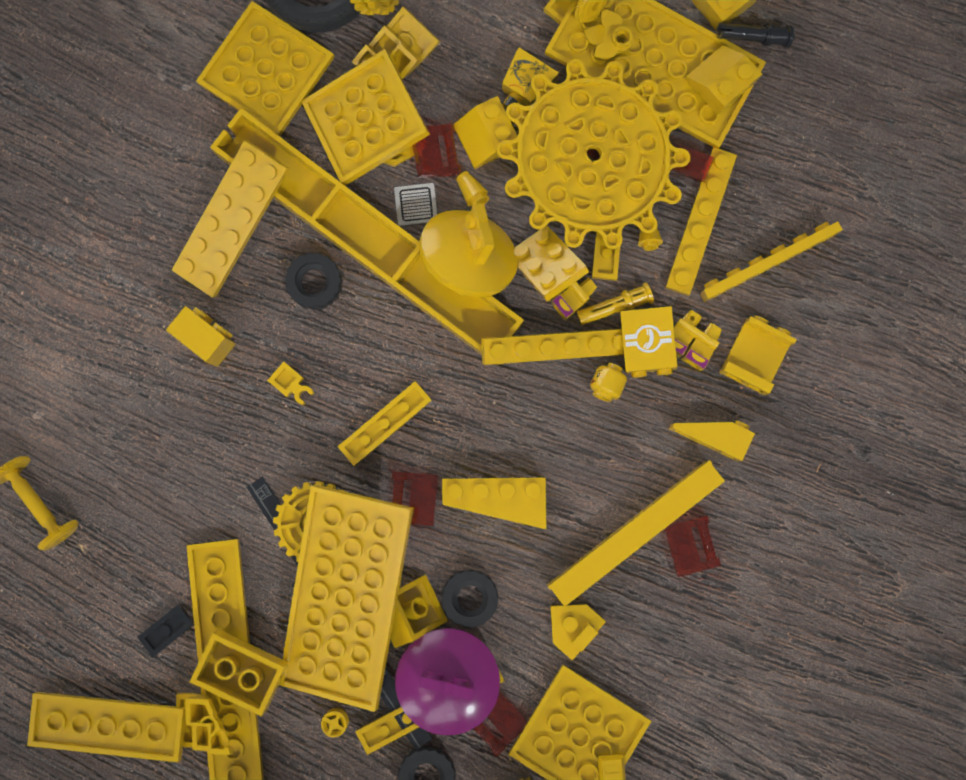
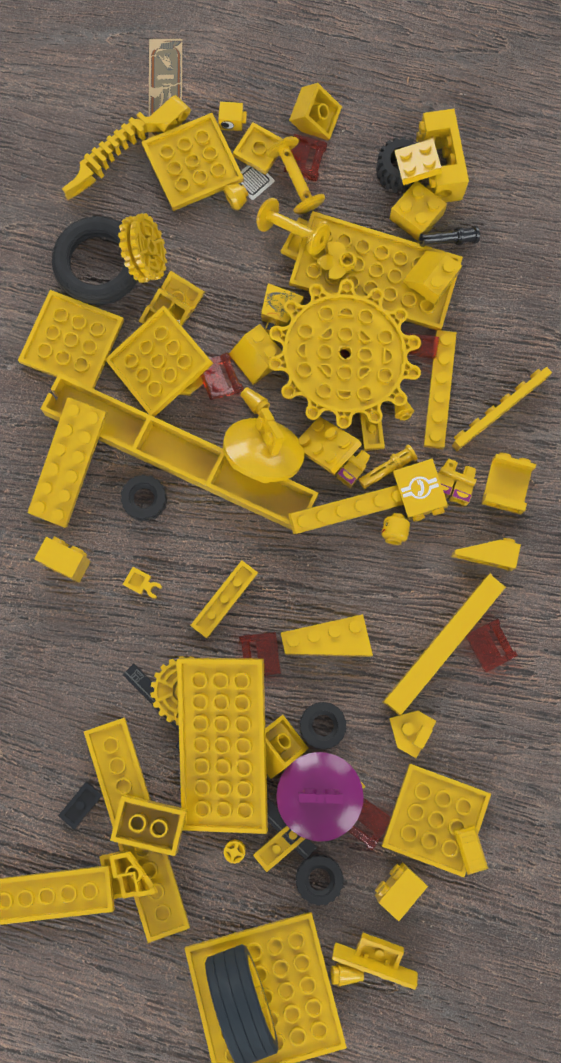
camera: 15 degrees left, 5 degrees down
(415, 203) = (211, 421): white sticker -> none

